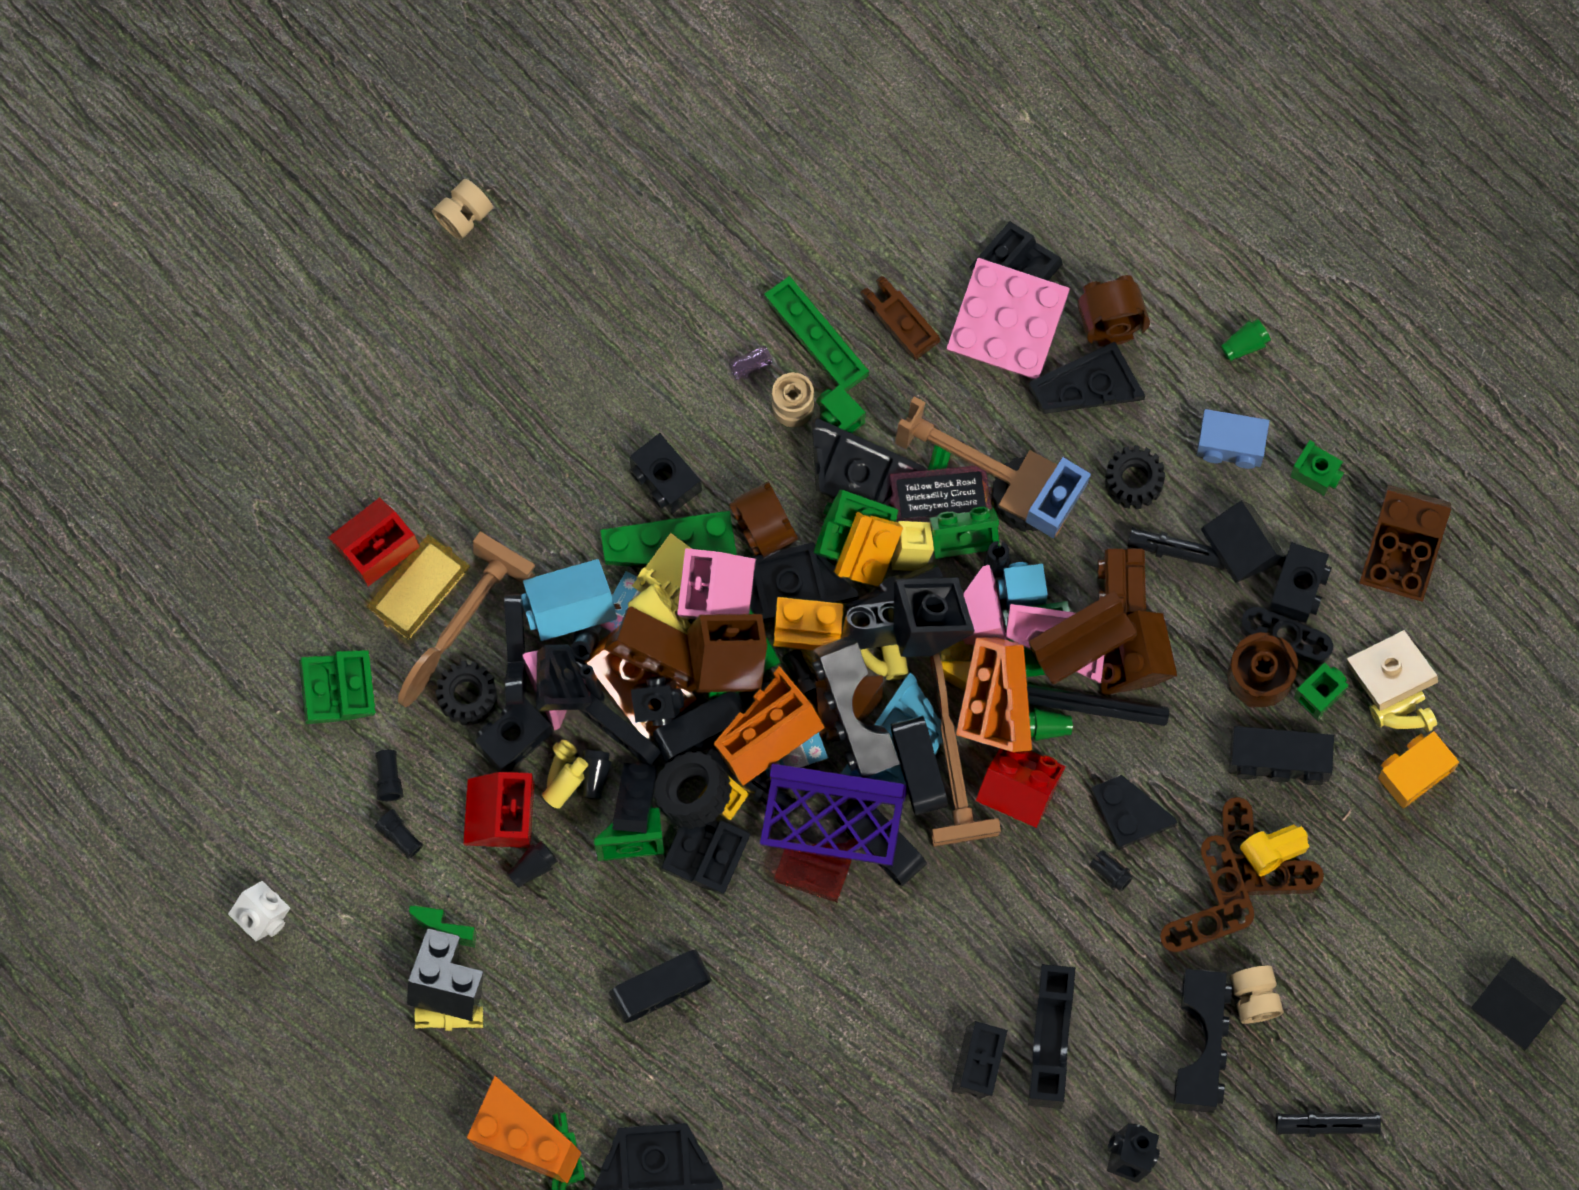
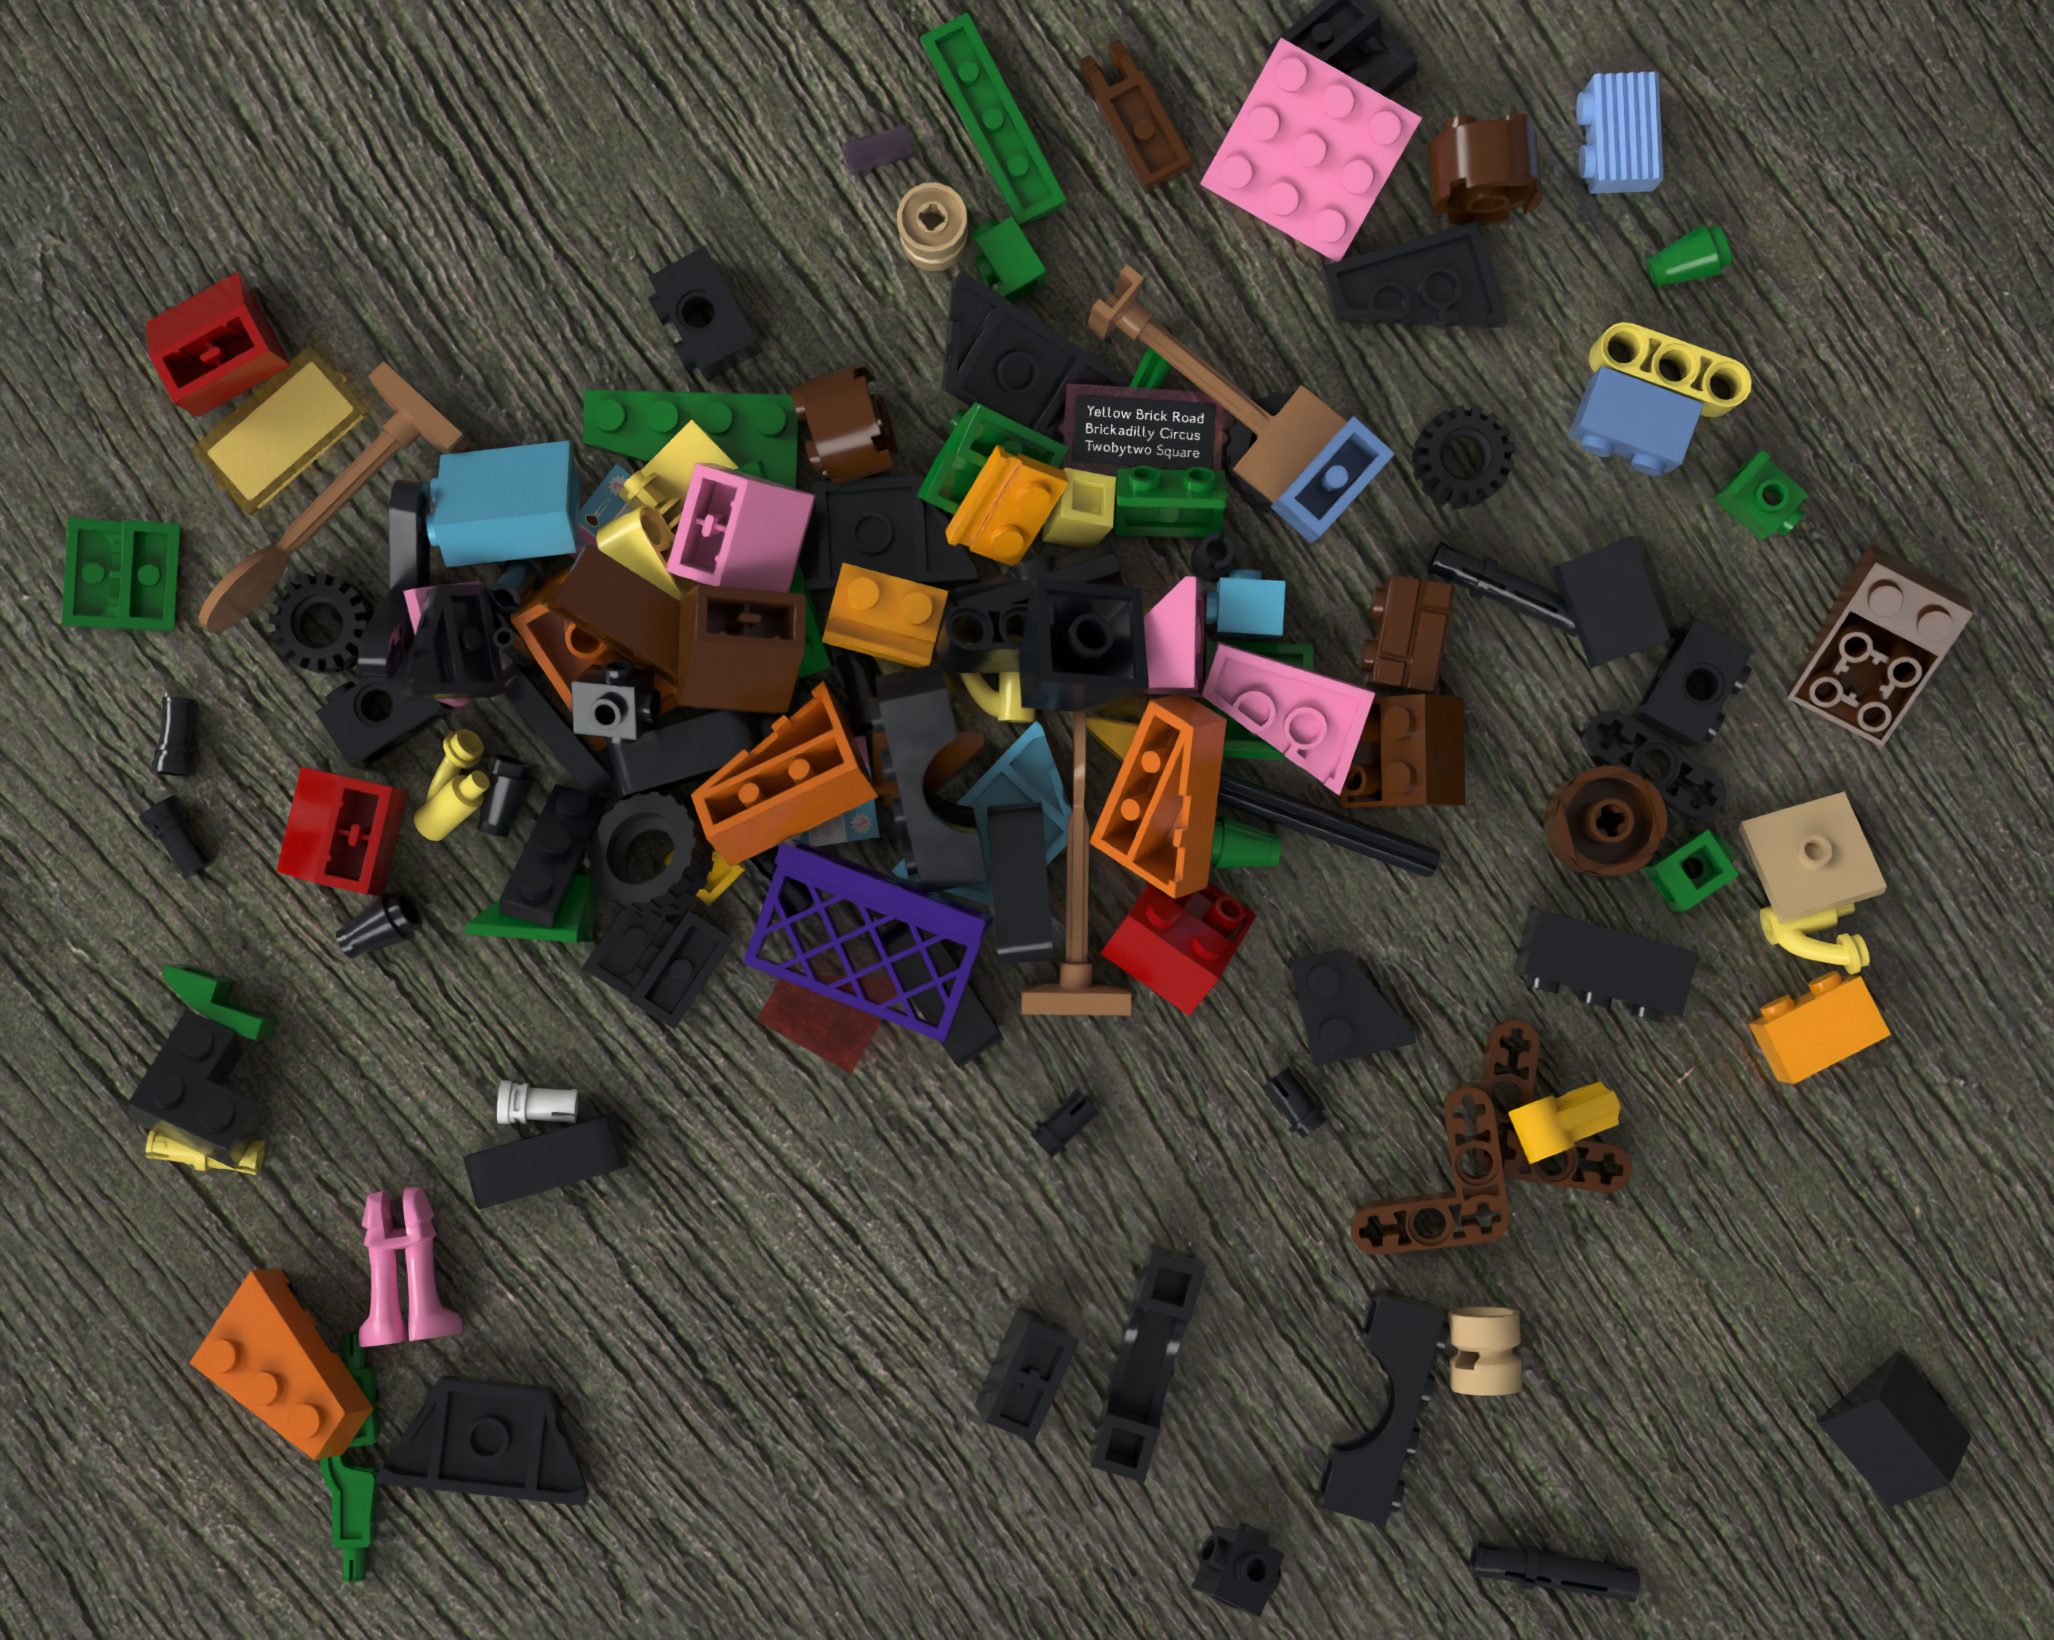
camera: 10 degrees right, 15 degrees up
(580, 1101) = (426, 1314): none -> bright pink piece
(639, 955) = (527, 1103): none -> white pin
(973, 908) = (1062, 1126): none -> black pin
(1082, 638) = (1326, 726): reddish brown panel -> none
(1190, 277) = (1621, 132): none -> light blue brick
(1262, 400) = (1694, 364): none -> light yellow beam

